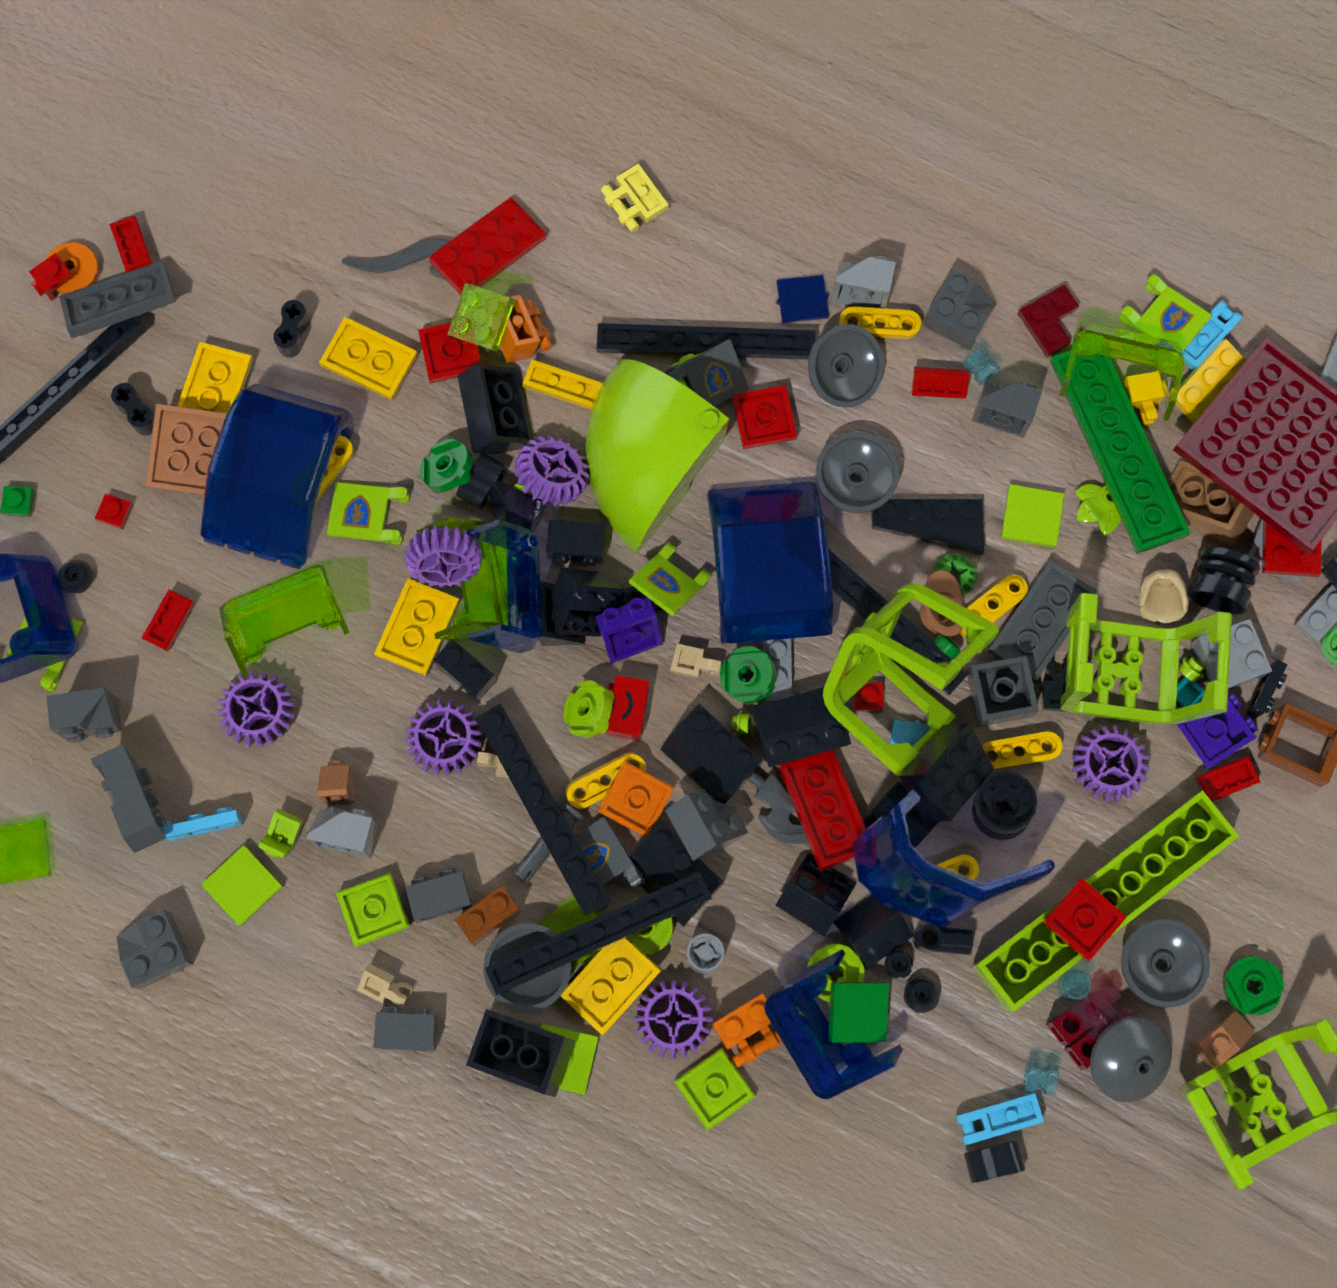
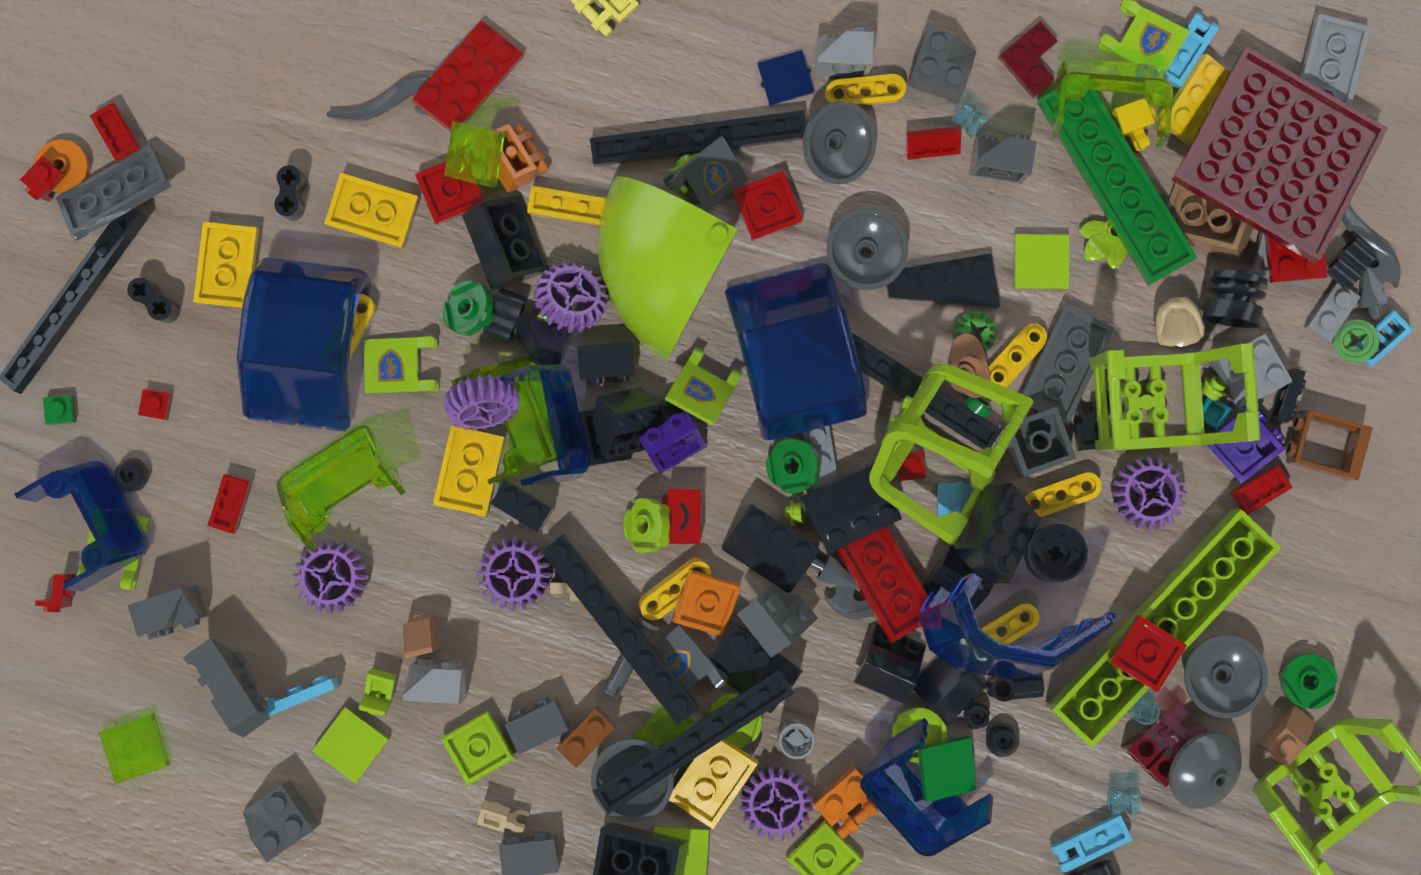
camera: 10 degrees left, 10 degrees up
(182, 448) = (208, 332): nougat plate -> none
(690, 661) = (735, 460): tan plate -> none

